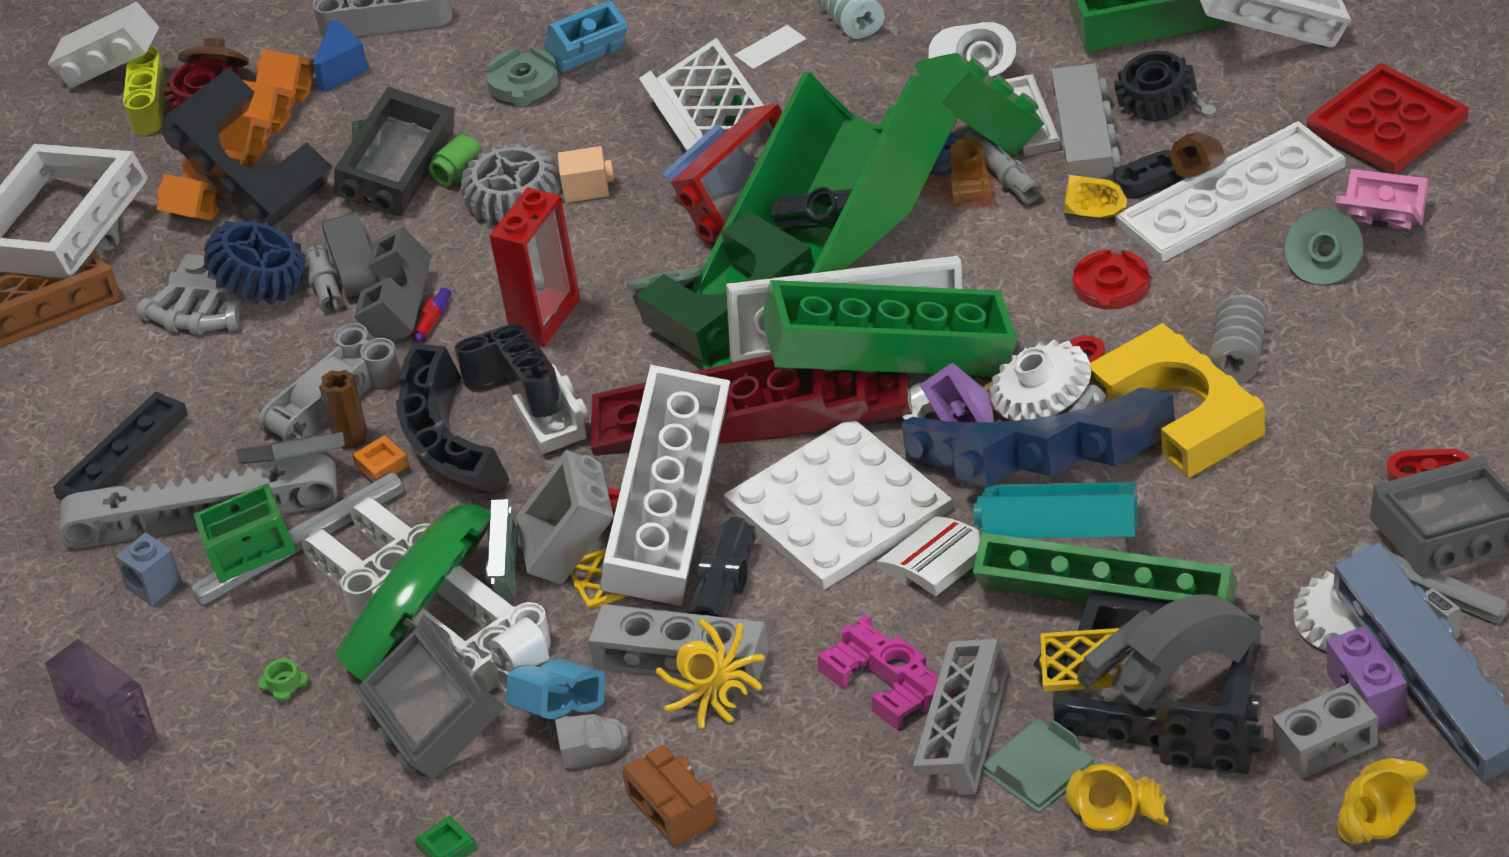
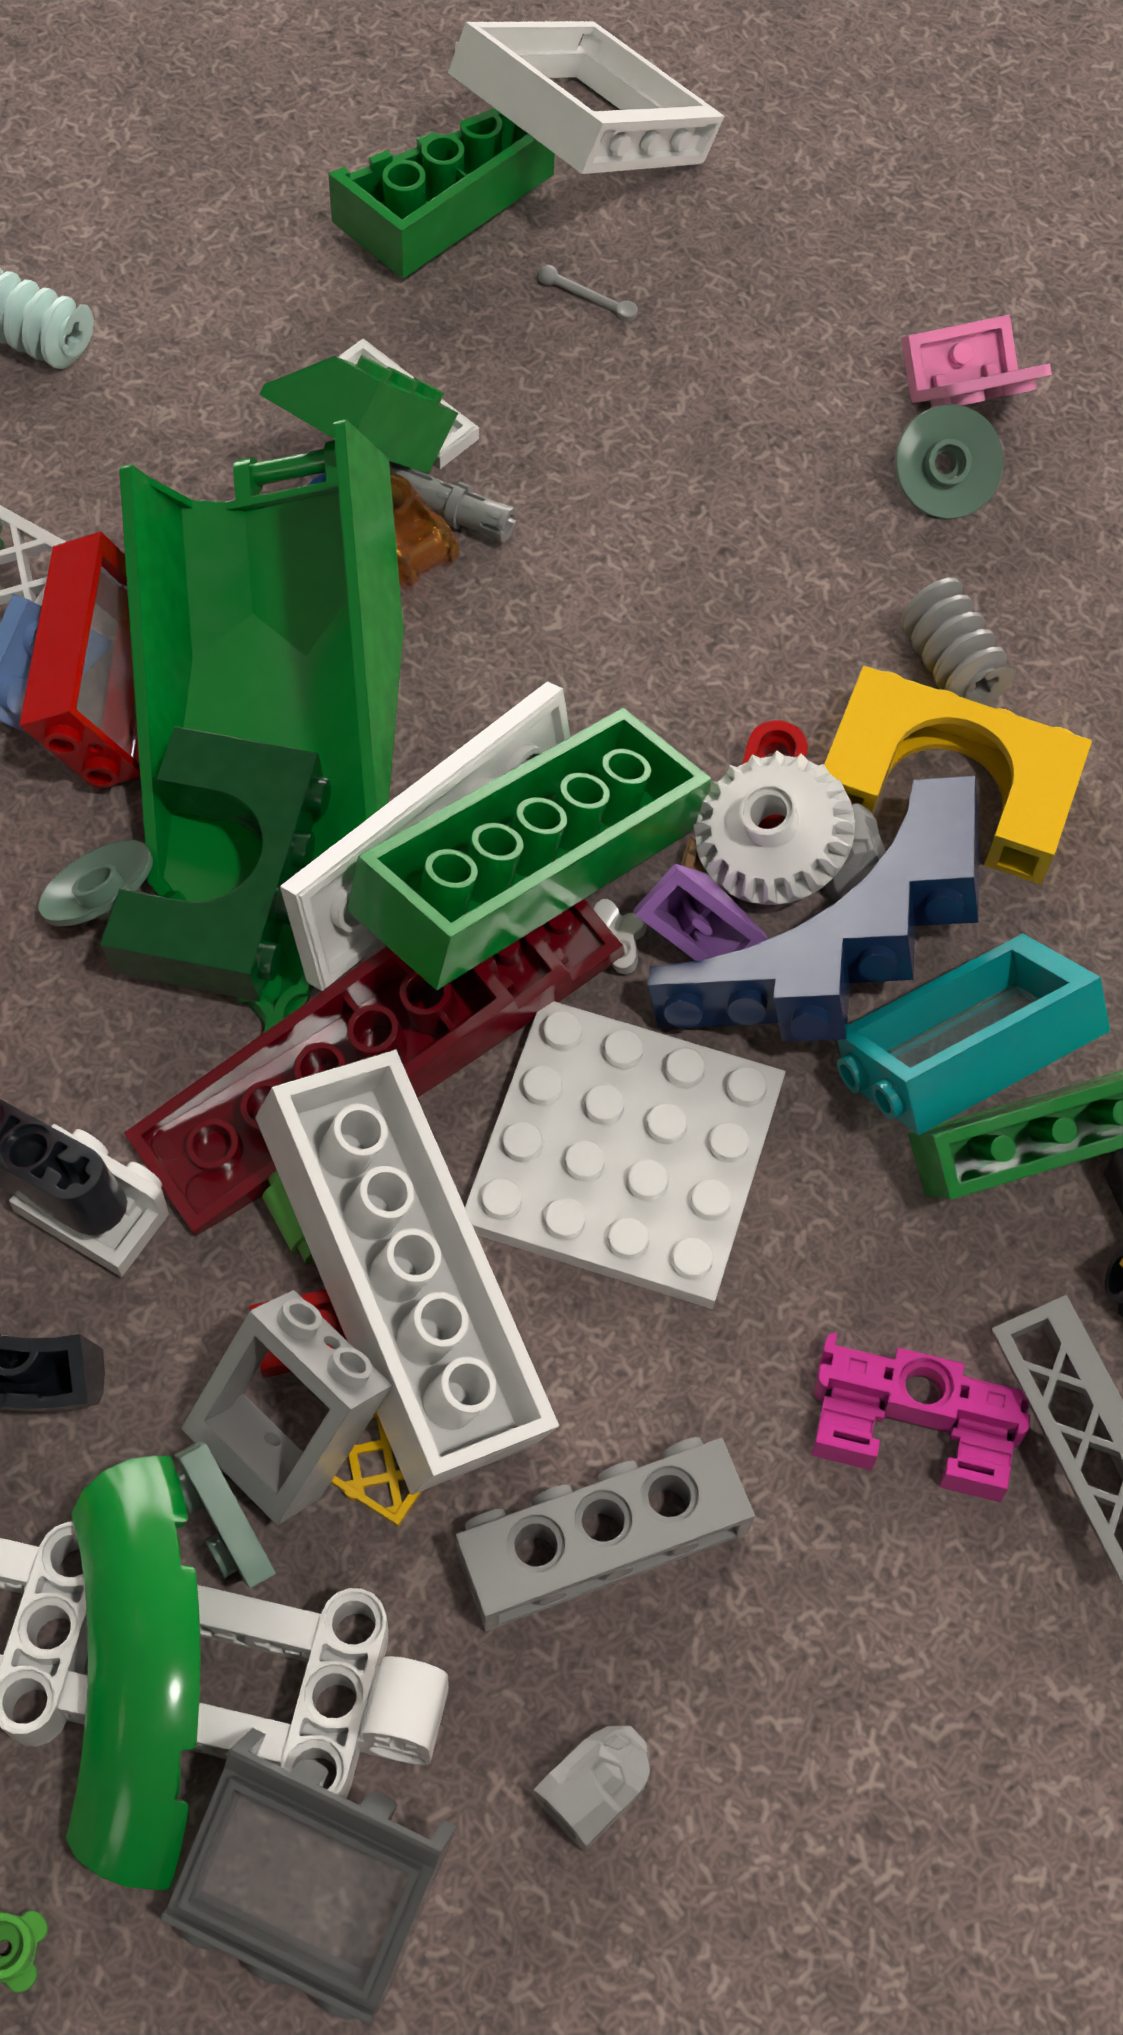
camera: 45 degrees left, 20 degrees up
(555, 688) = (496, 1737): dark azure brick -> none
(670, 794) = (803, 1823): dark orange brick -> none
(711, 673) = (711, 1573): yellow animal -> none
(724, 569) = (568, 1366): black piece -> none
(809, 209) = (238, 680): black piece -> none
(933, 555) = (833, 1175): white slope -> none
(984, 41) = (273, 333): white piece -> none
(1084, 121) = (500, 394): light grey brick -> none
(1093, 197) = (596, 502): yellow rock -> none
(1101, 286) = (705, 634): red tile -> none
(1146, 175) = (622, 430): black beam -> none
(1155, 86) = (548, 299): black gear -> none
(1196, 154) = (692, 387): reddish brown rock -> none
(1230, 192) = (749, 424): white tile -> none
(1387, 118) = (862, 243): red plate -> none

